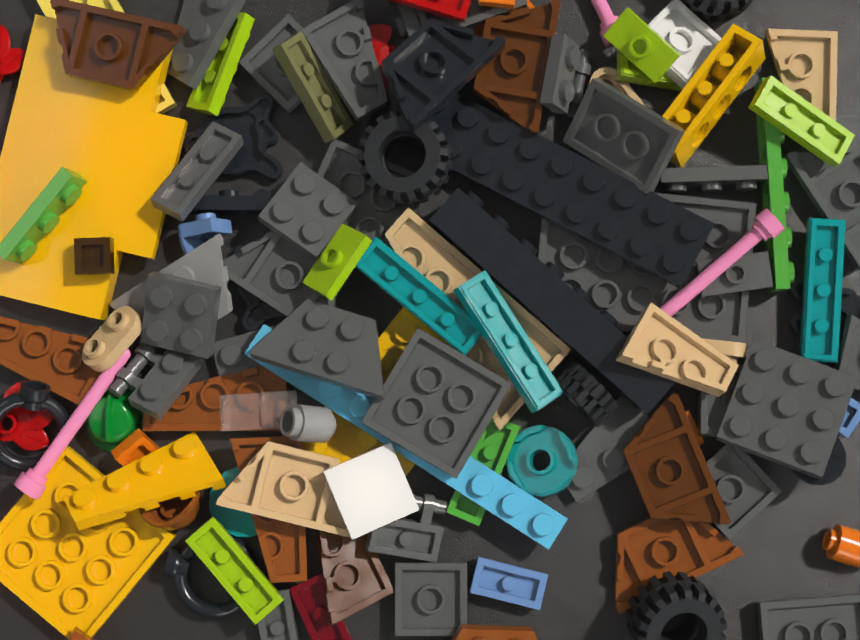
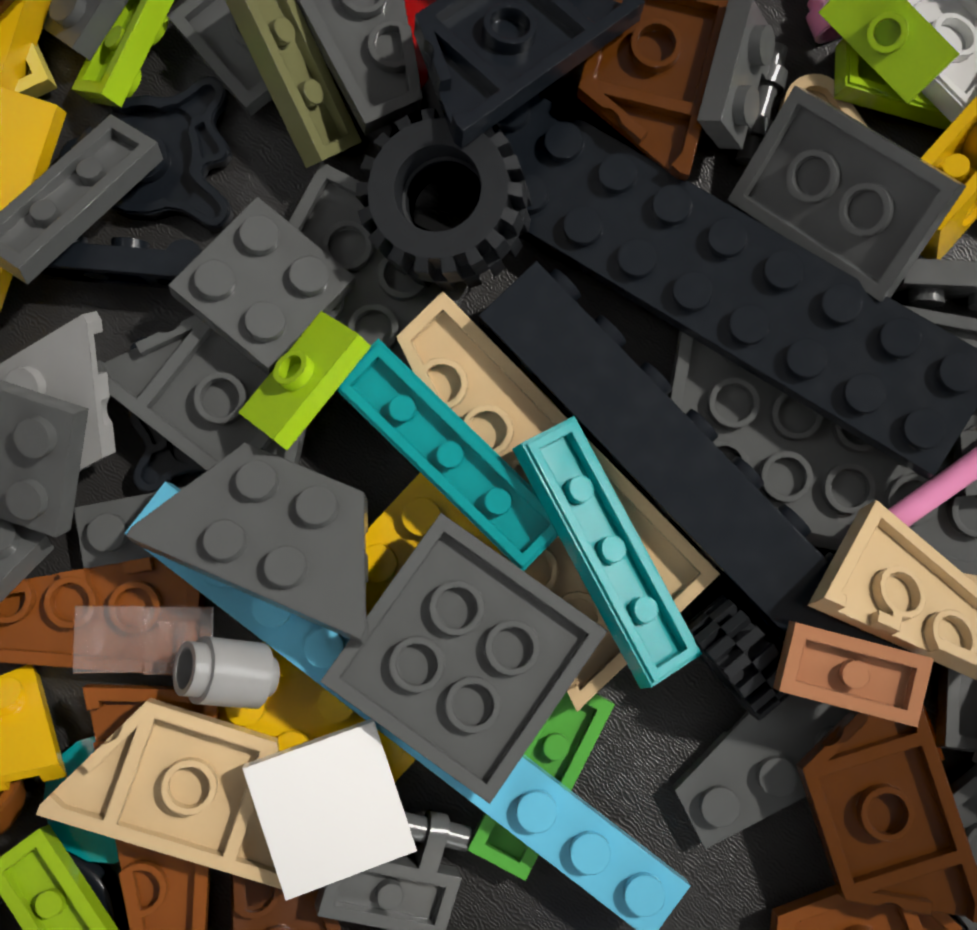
camera: 10 degrees right, 0 degrees up
(204, 227) = (78, 295): medium blue plate -> none
(561, 467) = (686, 778): teal tile -> none
(642, 394) = (853, 674): none -> nougat plate

